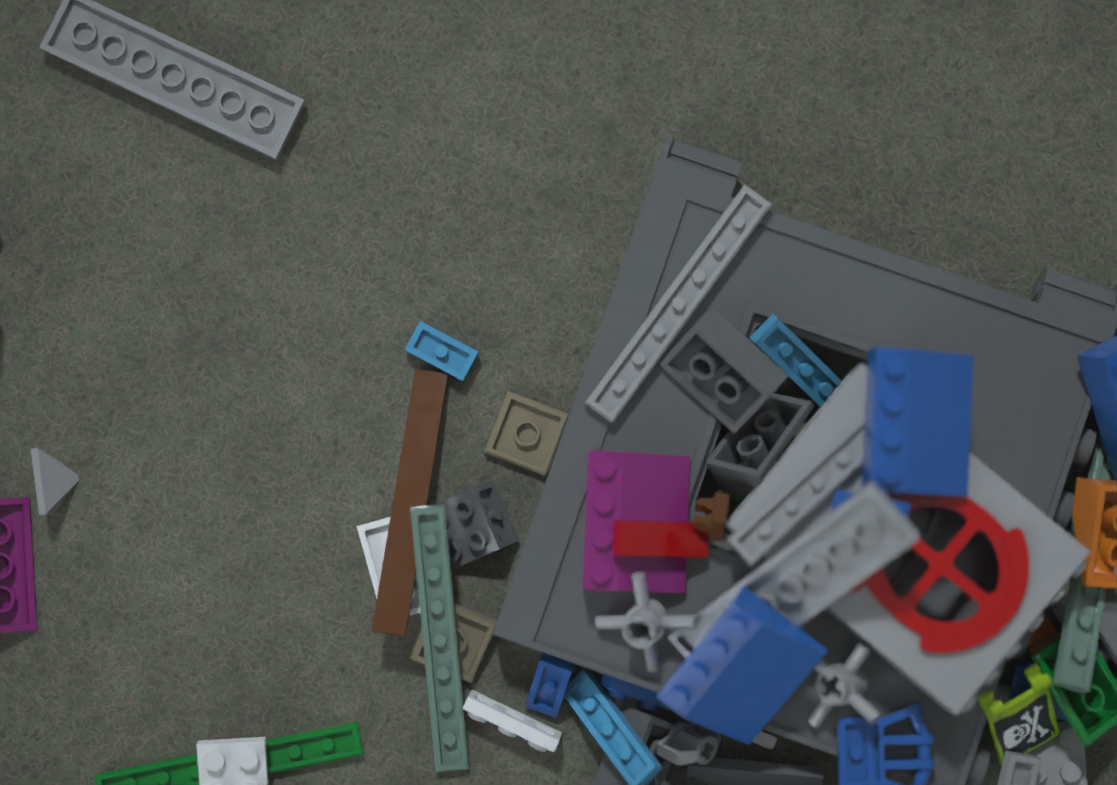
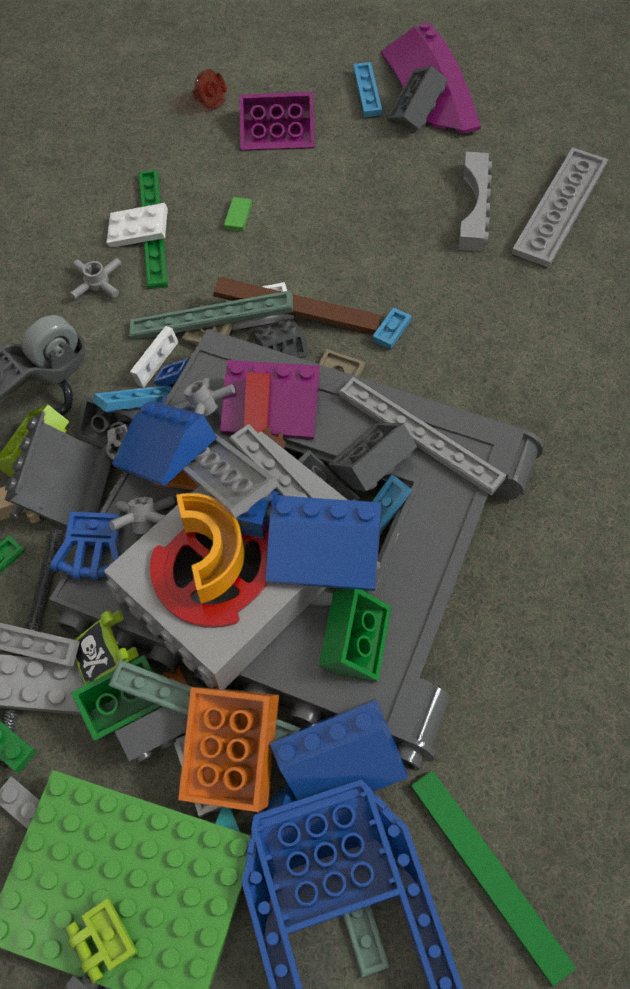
camera: 95 degrees right, 25 degrees down
(52, 481) = (322, 151): light grey slope -> none
(100, 212) = (473, 228): none -> light grey arch
(196, 619) = (238, 214): none -> bright green tile
(958, 548) = (224, 562): none -> light orange brick
(1008, 384) = (355, 635): none -> green slope

